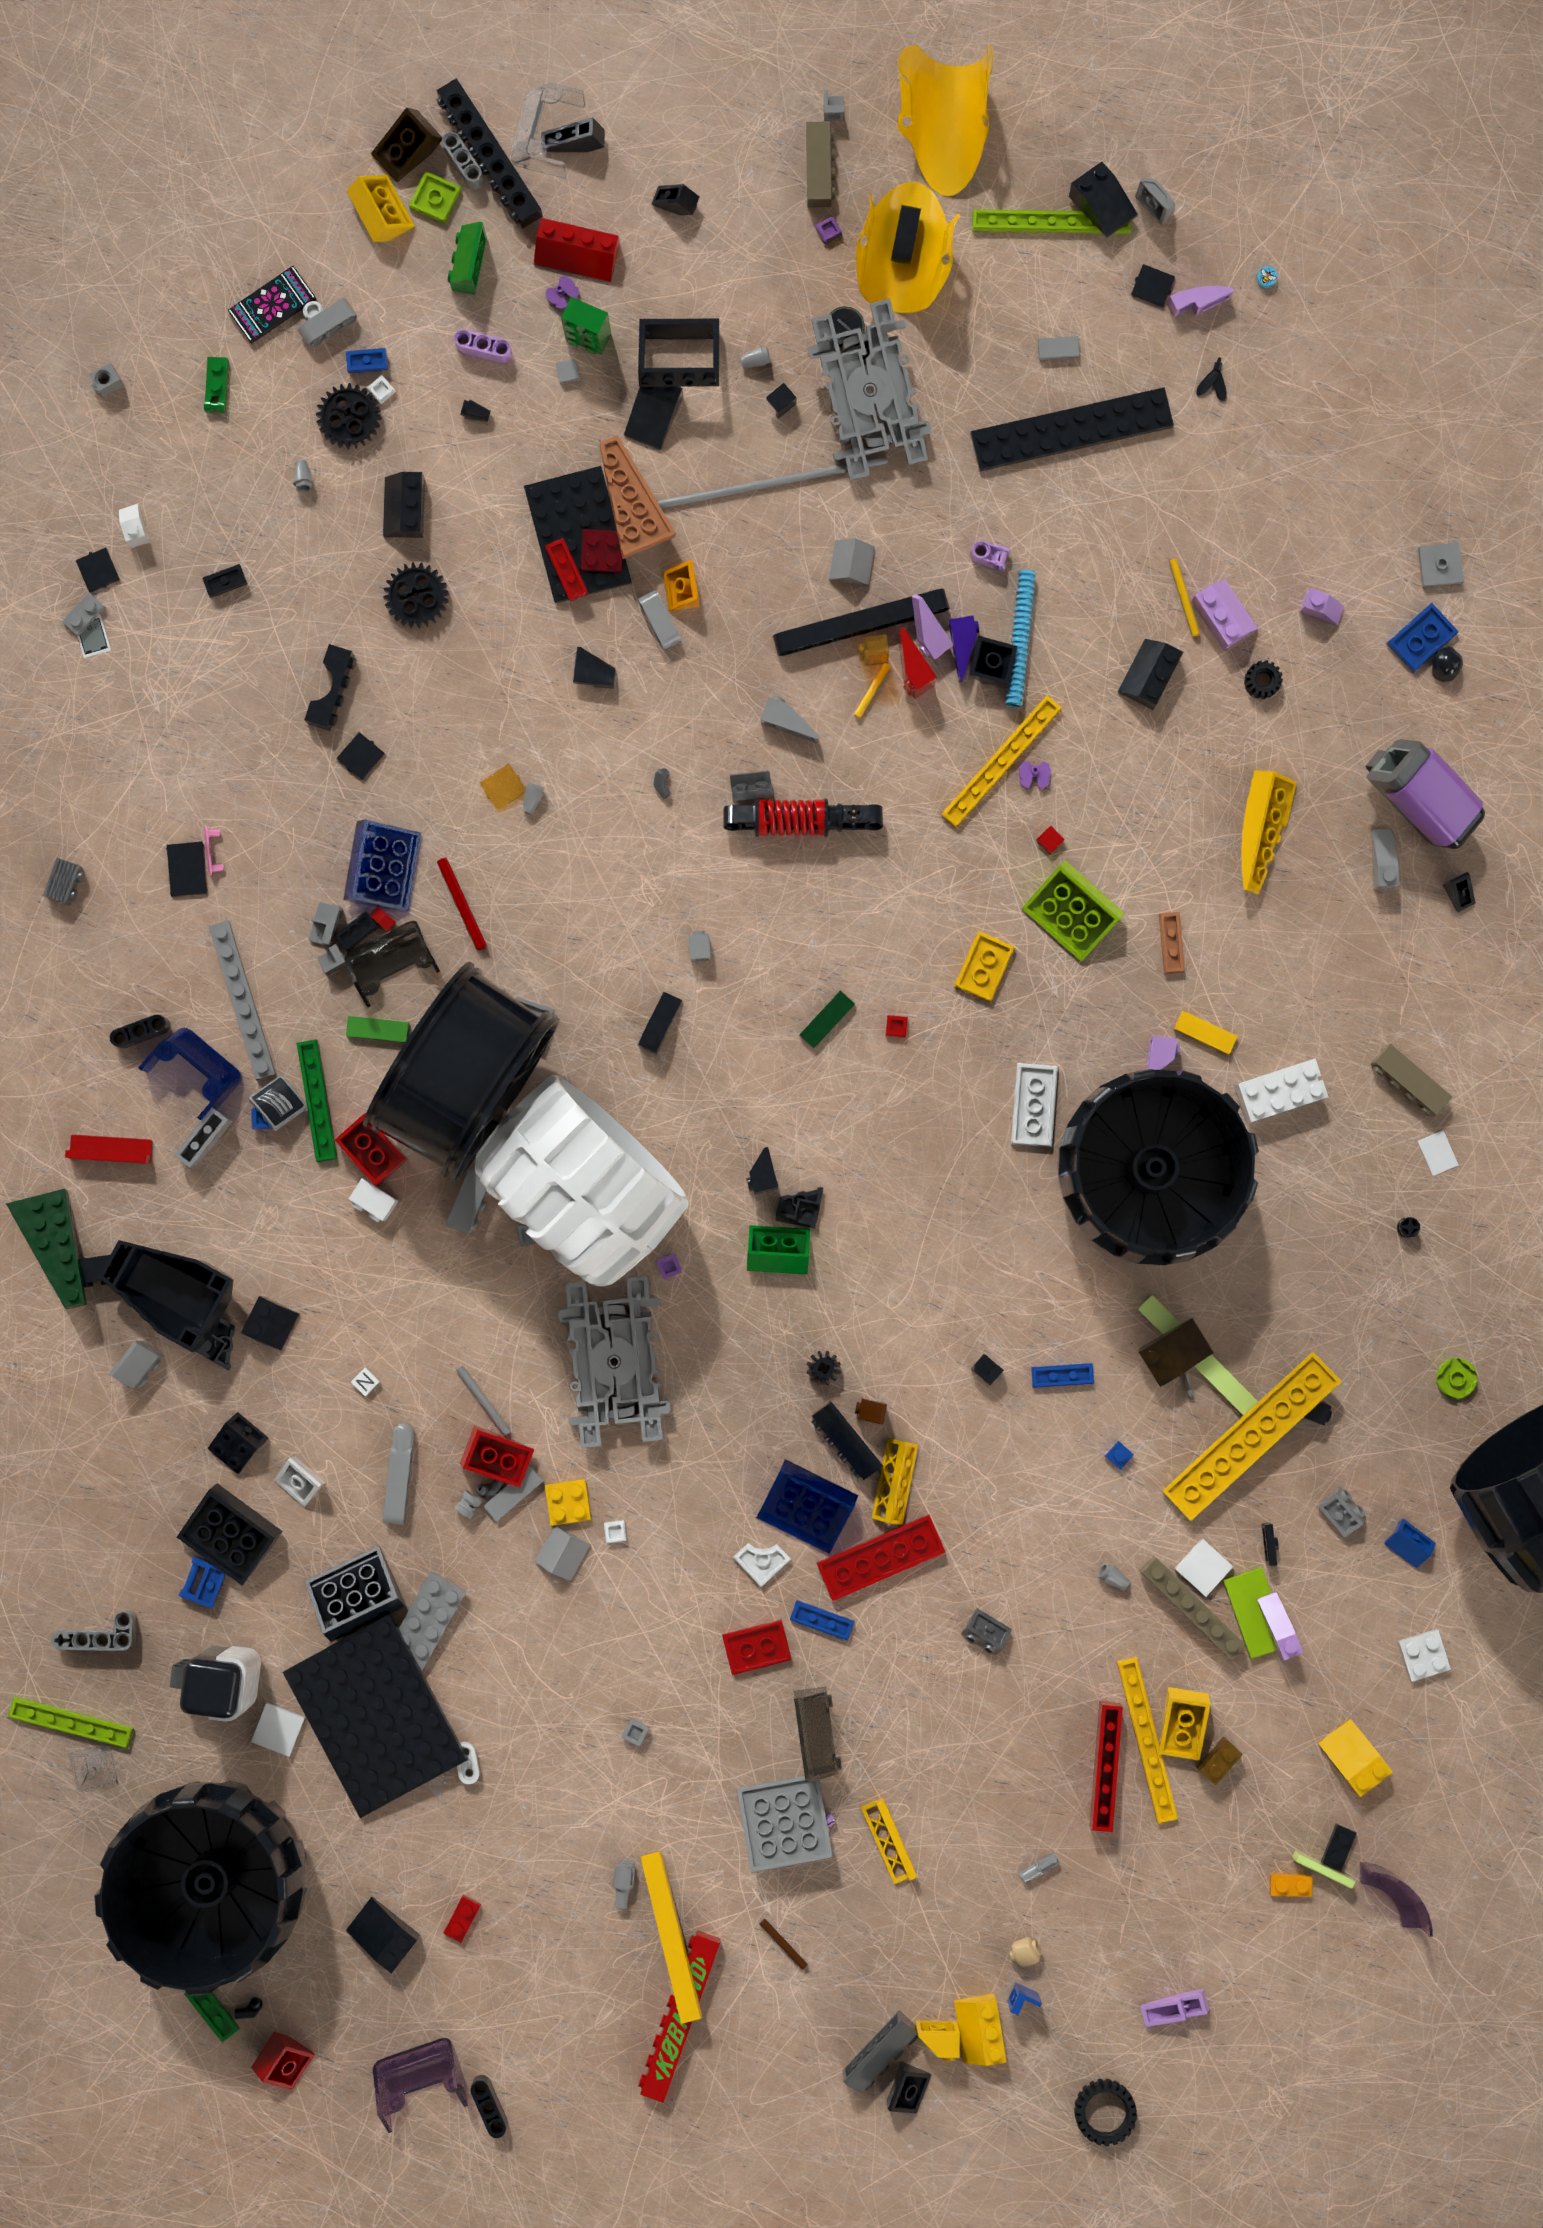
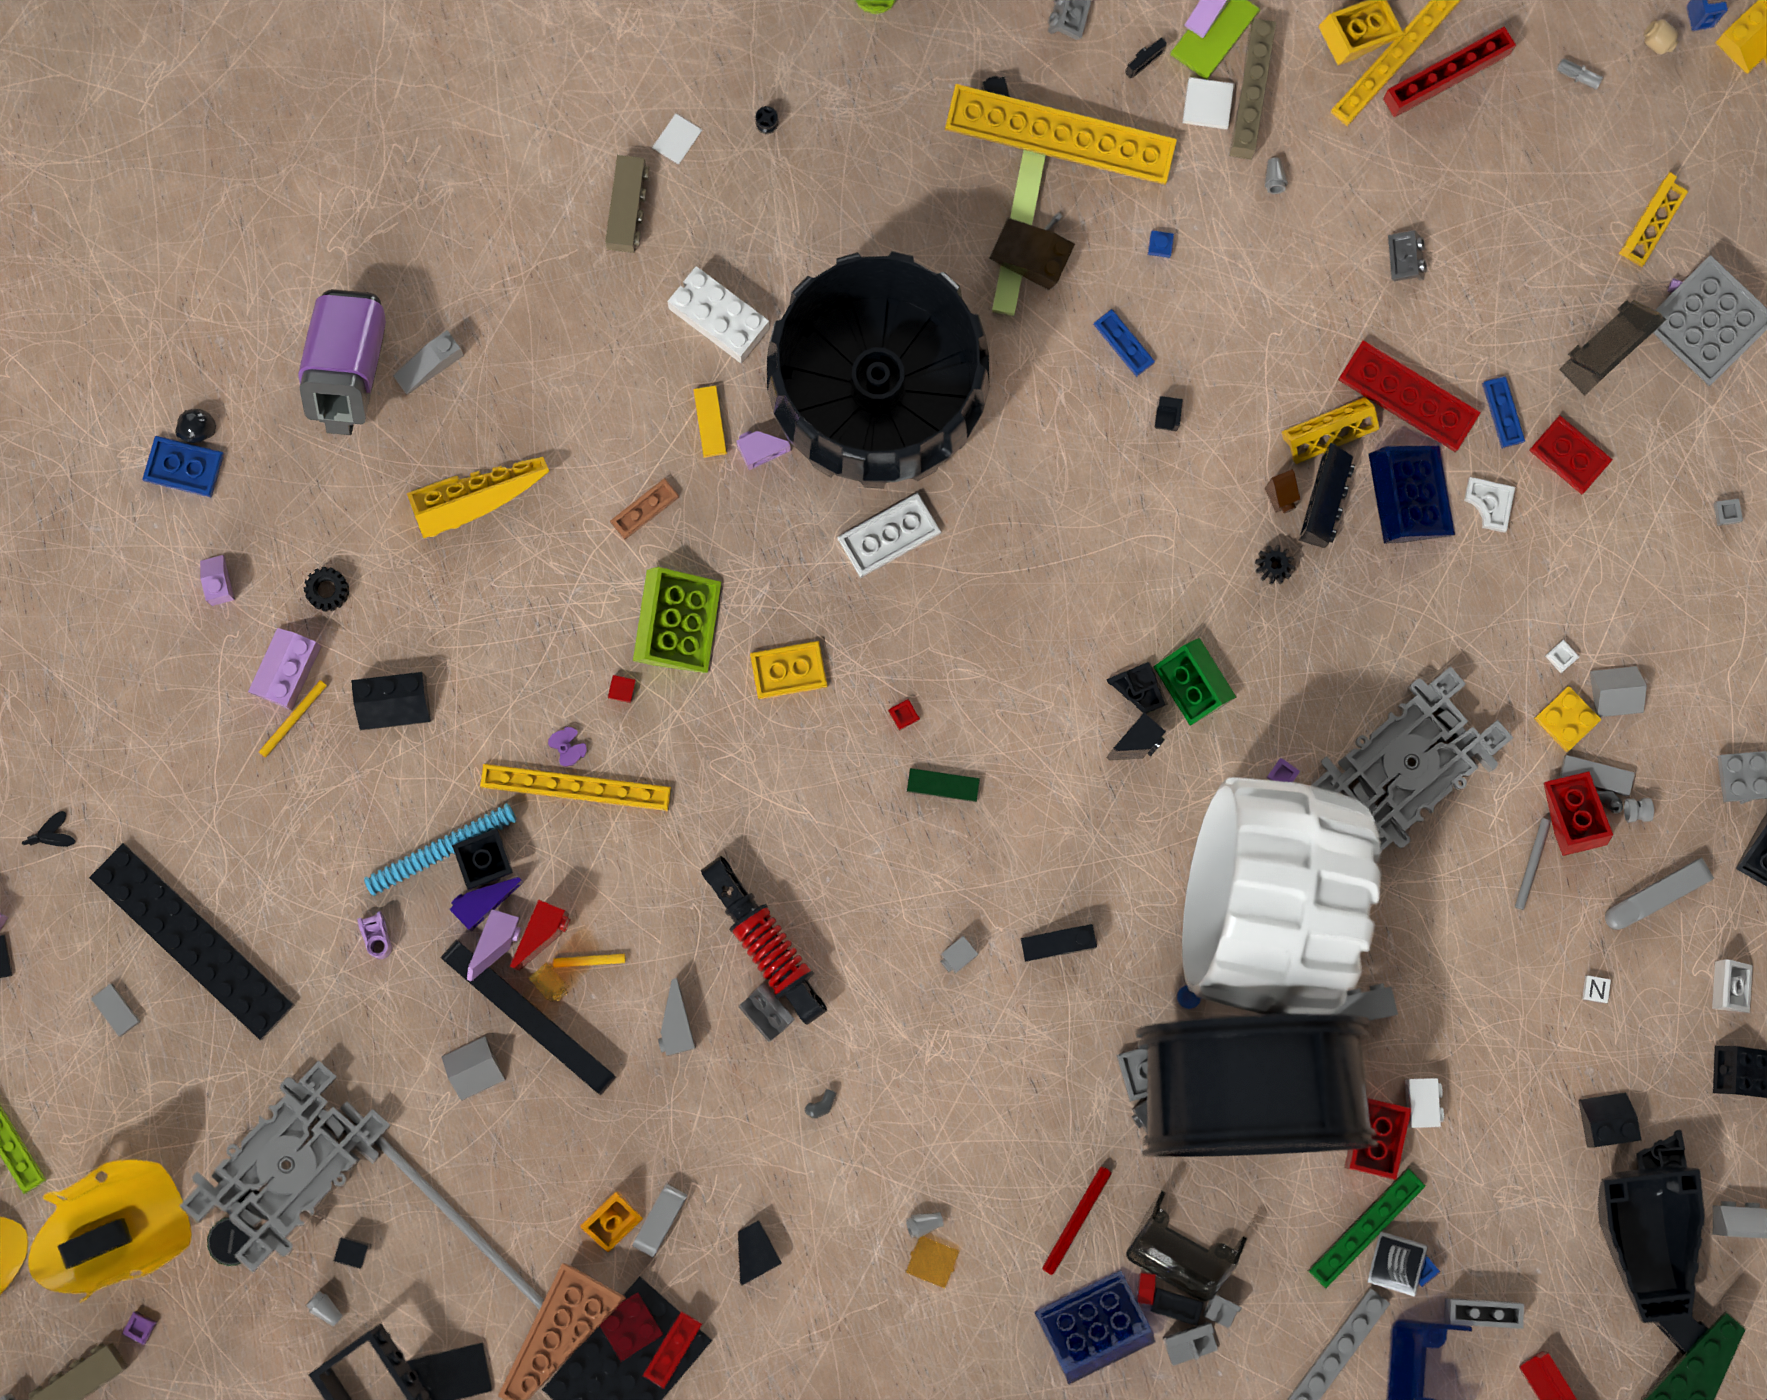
camera: 130 degrees left, 5 degrees down
(377, 1029) = (1256, 1217): bright green tile -> none
(1440, 564) = (98, 495): light grey plate -> none
(1460, 892) = (412, 273): black slope -> none

